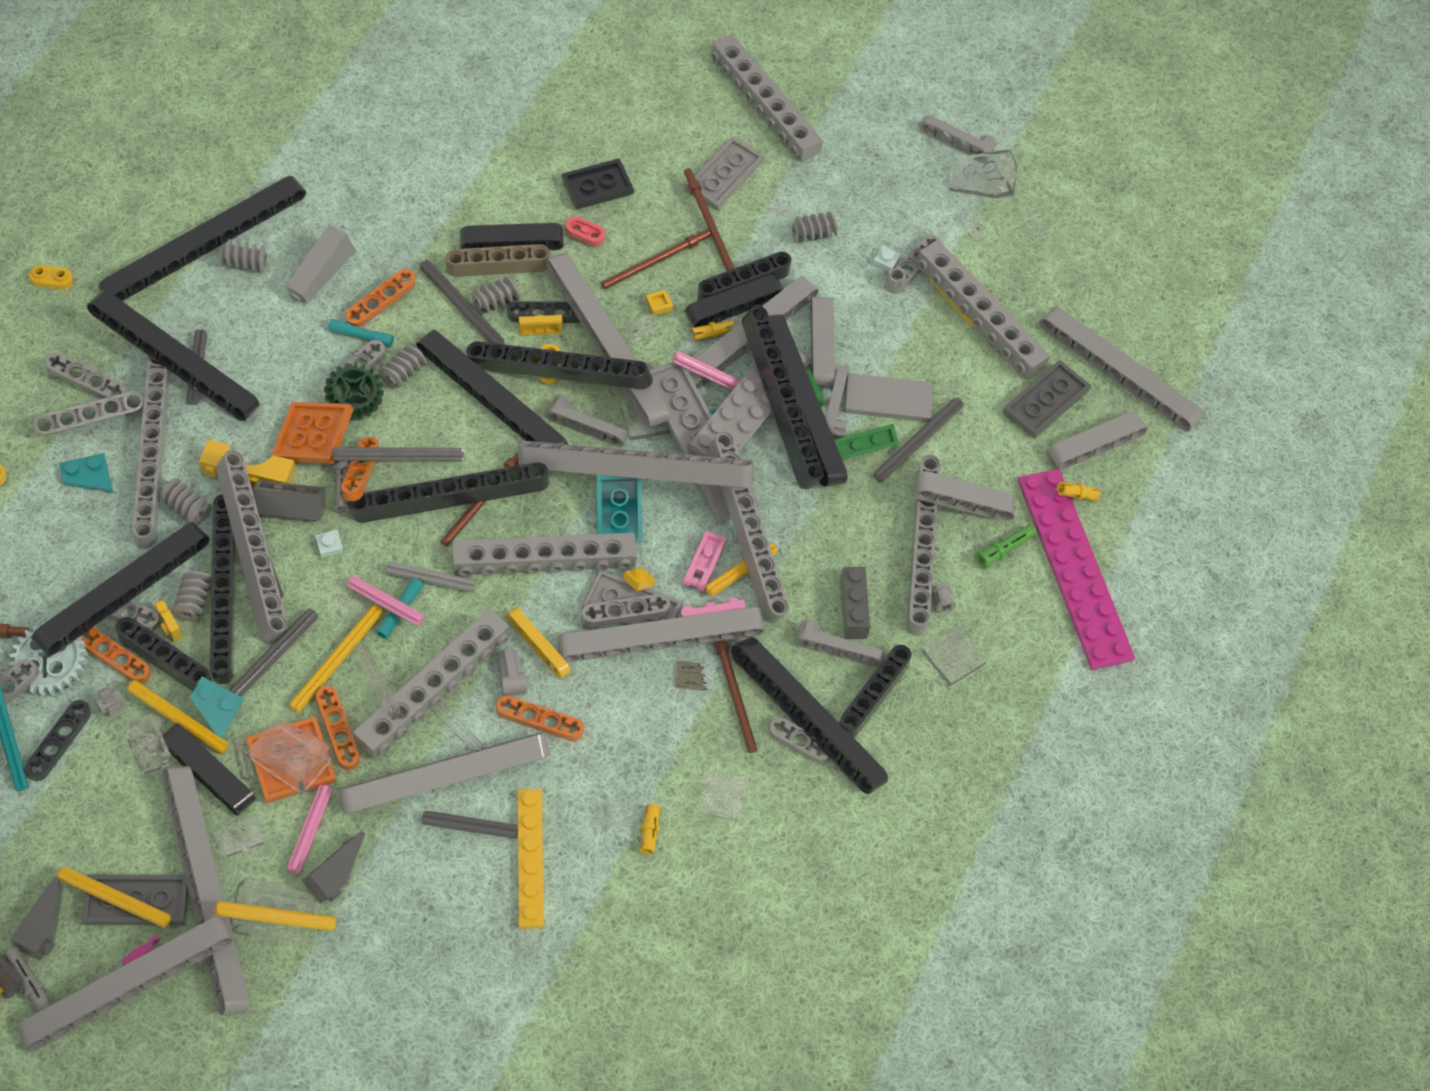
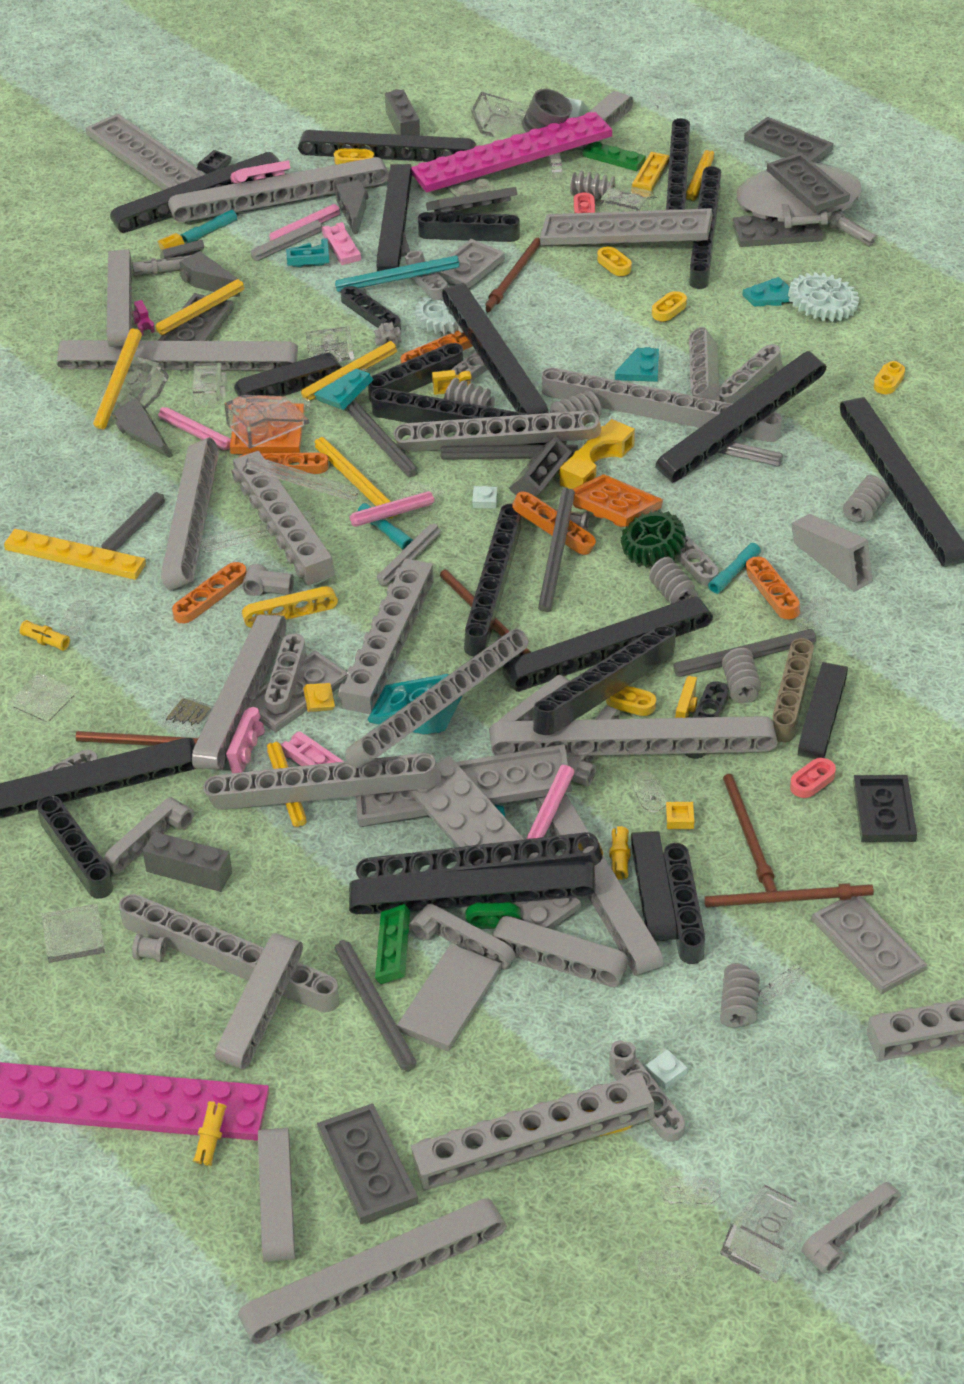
camera: 120 degrees right, 15 degrees down
(999, 549) = (180, 1024): bright green pin -> none

